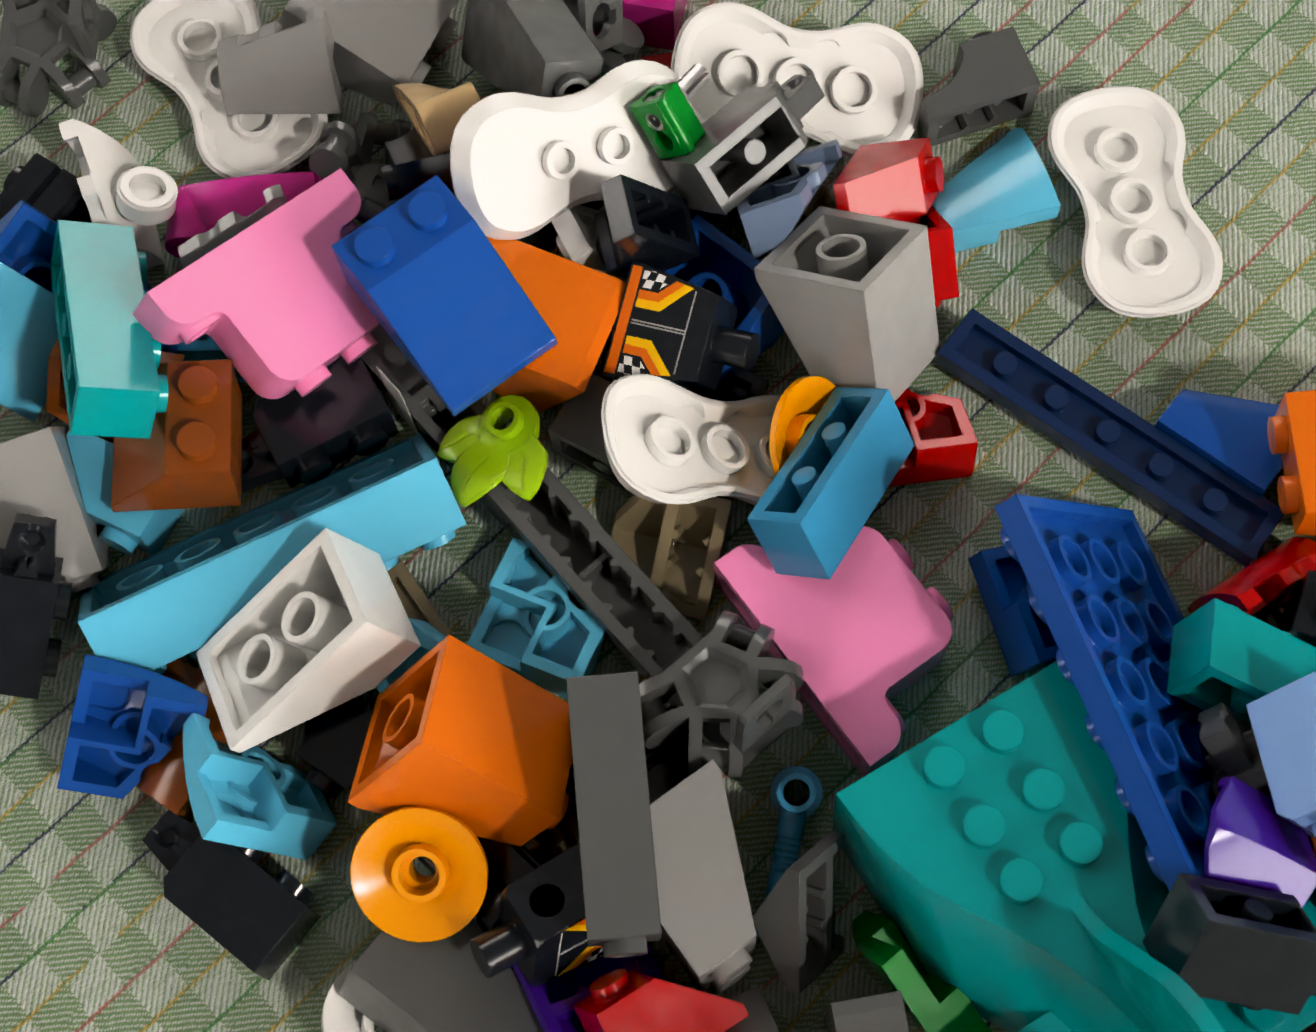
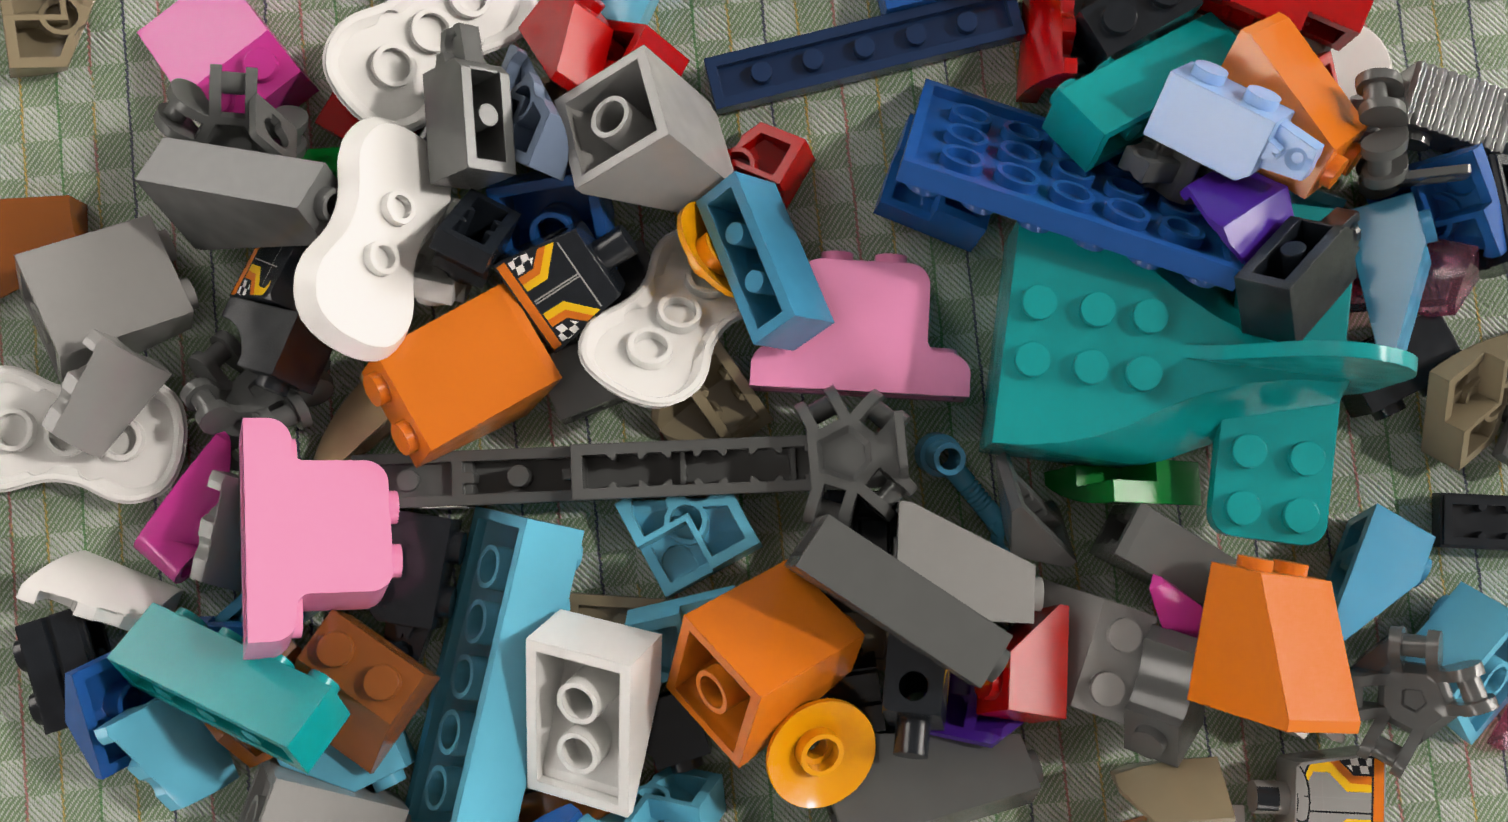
camera: 60 degrees left, 15 degrees up
(146, 195) = (127, 570): white tile -> none
(435, 110) = (252, 307): tan piece -> none
(443, 295) = (416, 423): blue slope -> none
(492, 455) = (553, 477): lime plate -> none
(669, 117) = (408, 152): green piece -> none

